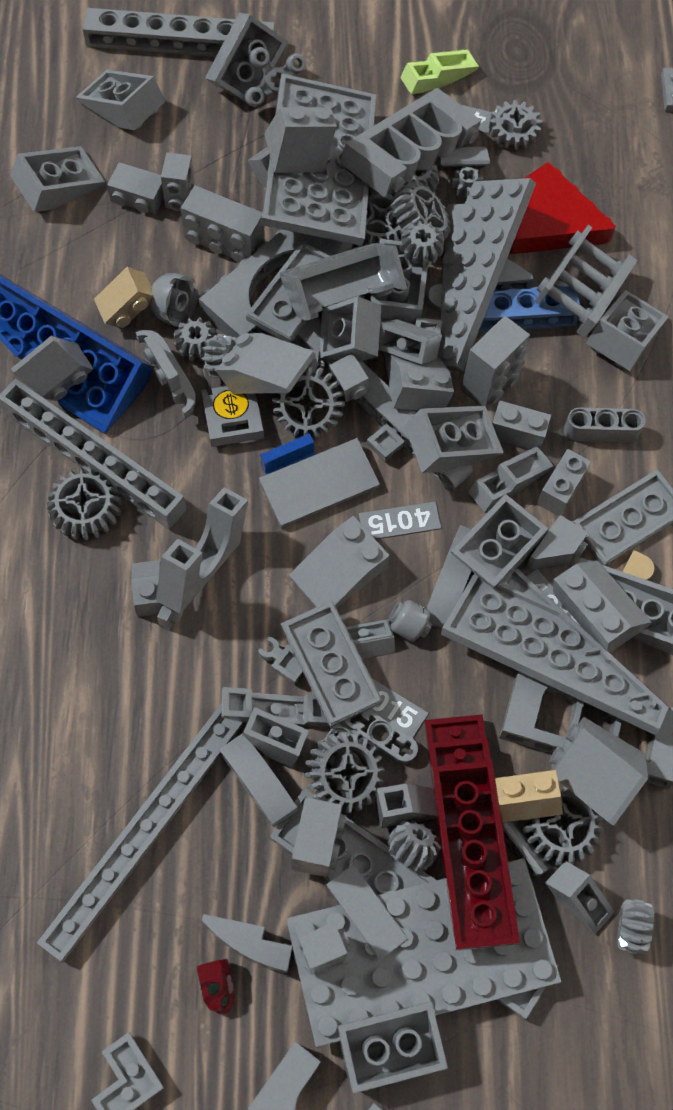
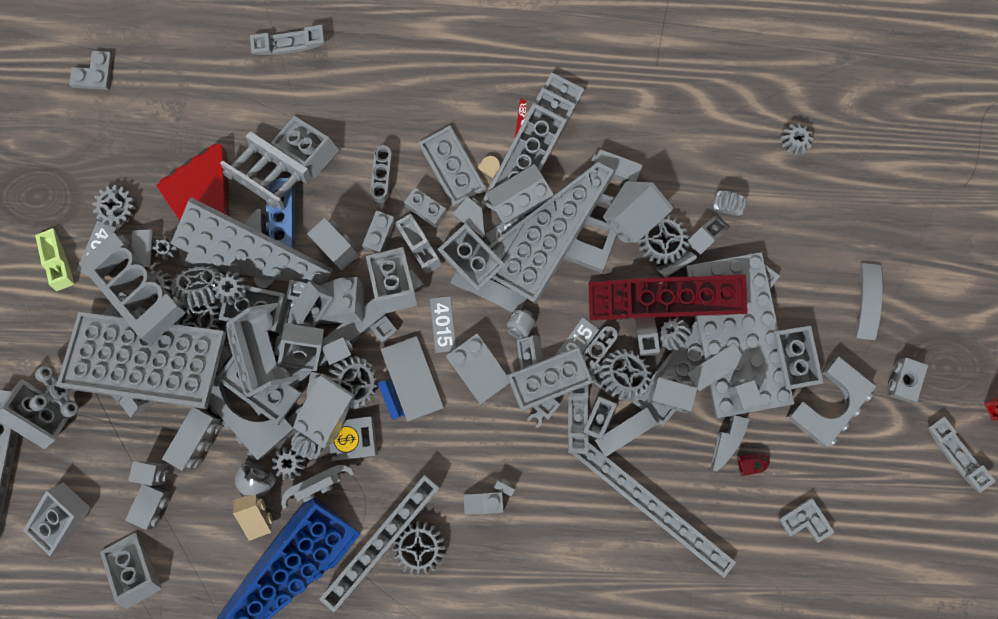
camera: 80 degrees left, 15 degrees up
(53, 368) = (314, 569): light grey slope -> none
(188, 569) = (480, 469): light grey arch -> none
(300, 139) = (137, 373): light grey slope -> none
(529, 796) = (651, 258): tan brick -> none

